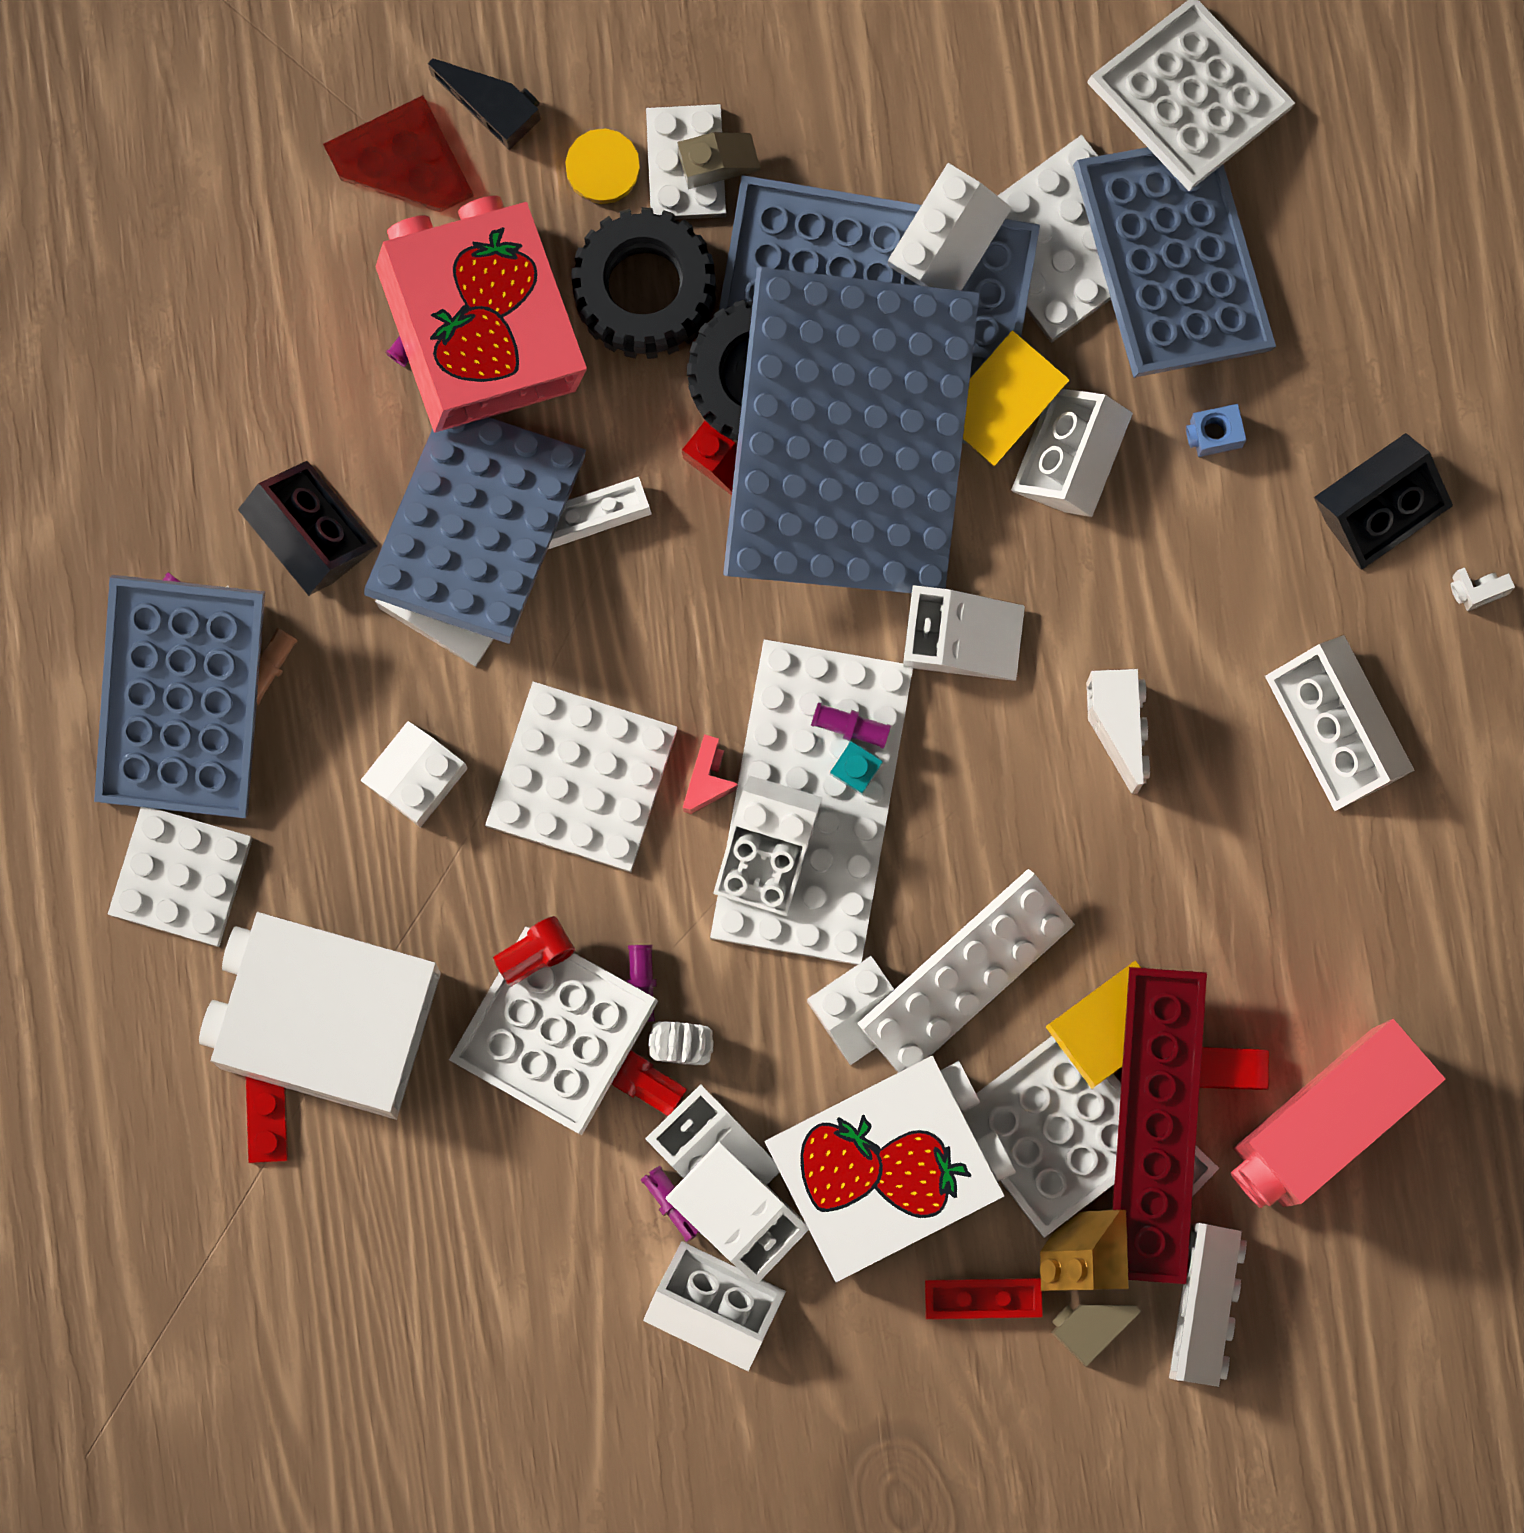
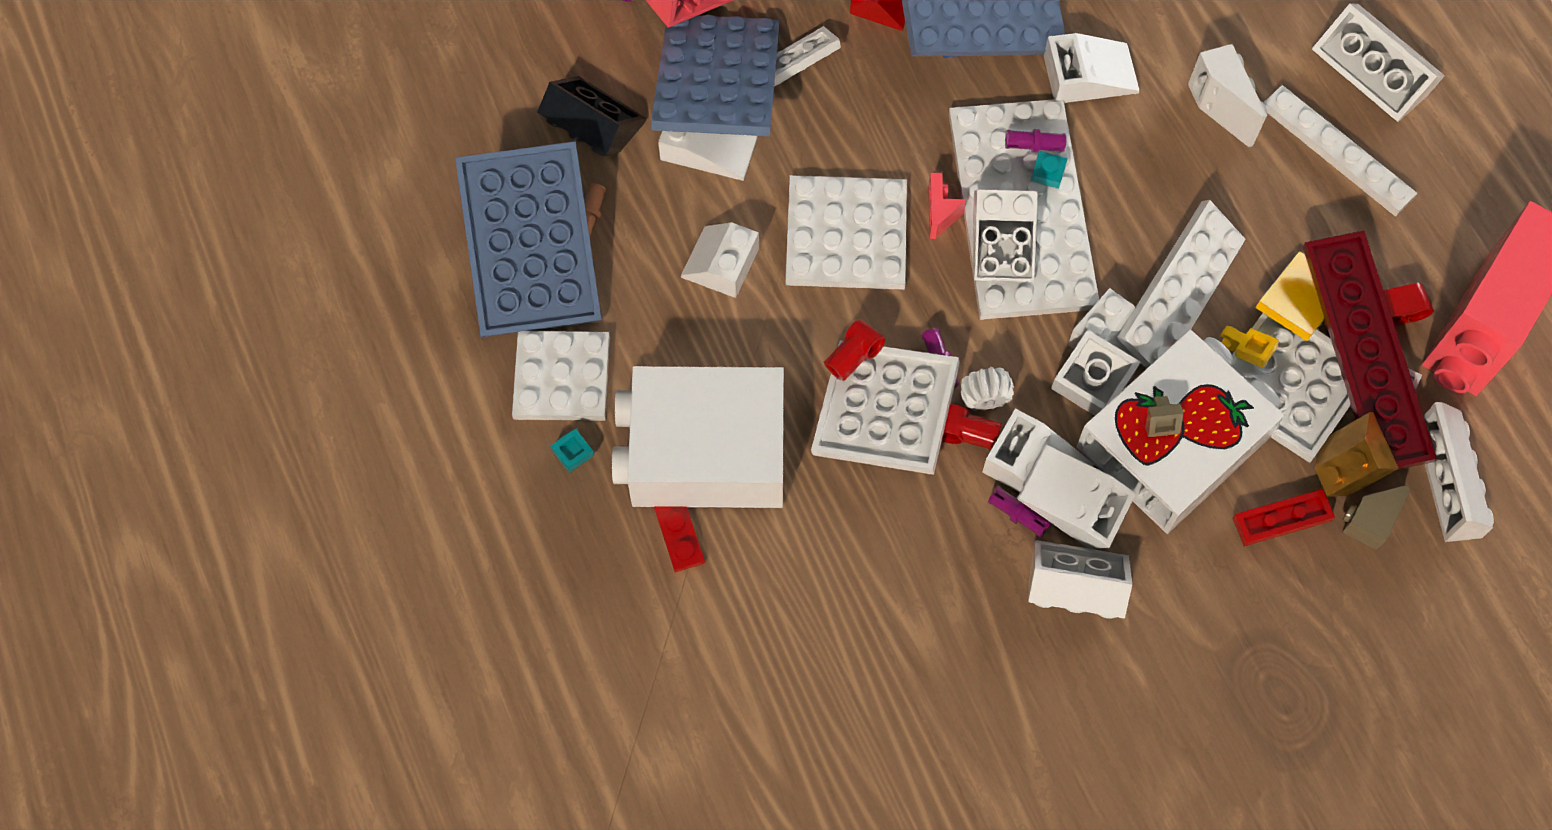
camera: 20 degrees left, 15 degrees down
(167, 980) = (572, 450): none -> teal plate
(815, 1063) = (1094, 373): none -> white slope
(854, 1165) = (1163, 418): none -> dark tan tile
(1020, 1078) = (1252, 347): none -> yellow plate
(1241, 831) = (1339, 151): none -> white plate

